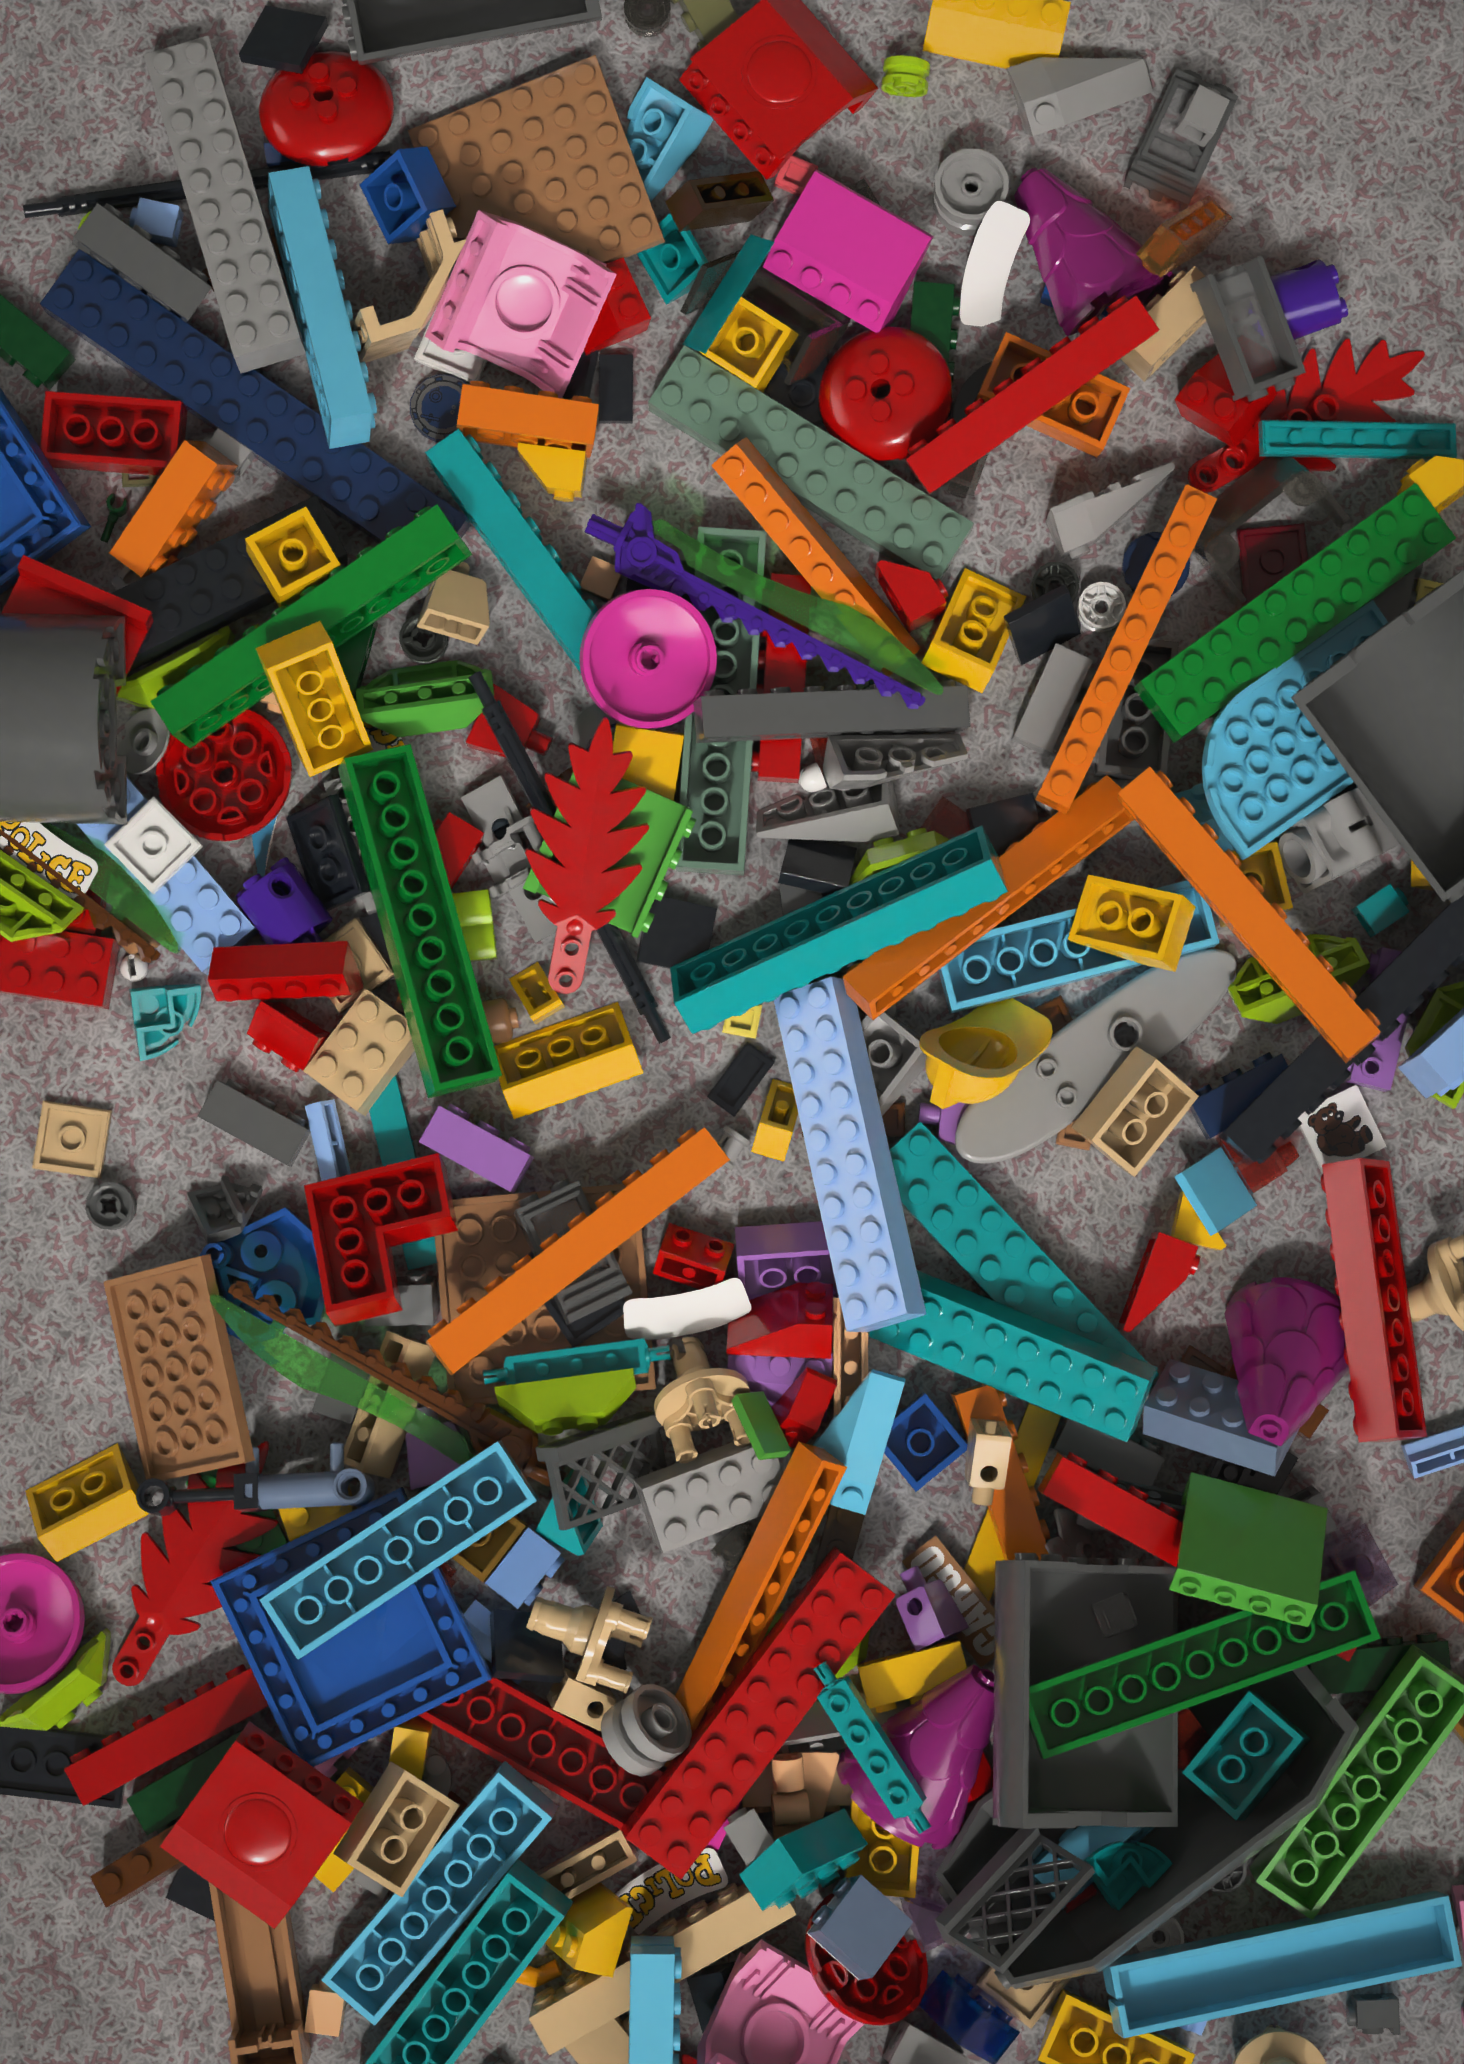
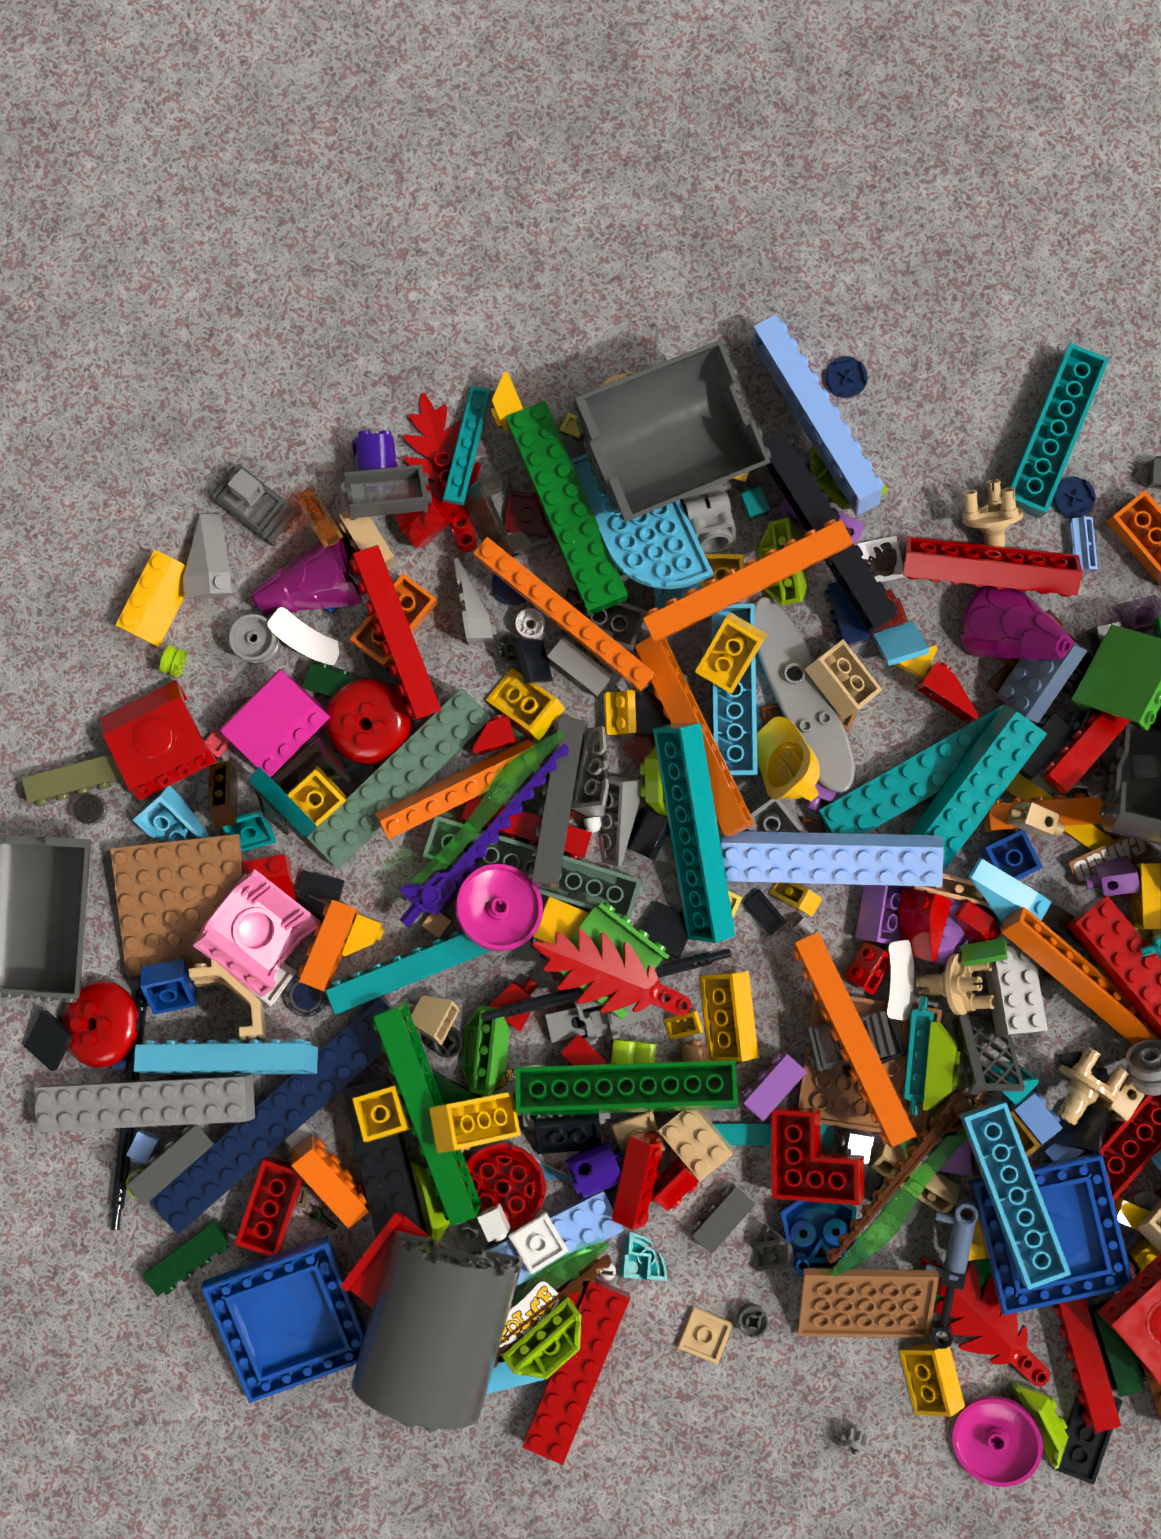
camera: 80 degrees left, 0 degrees up
(167, 772) = (494, 1223): none -> white brick
(327, 1139) = (747, 1175): light blue piece -> none
(995, 777) = (619, 712): none -> yellow bracket

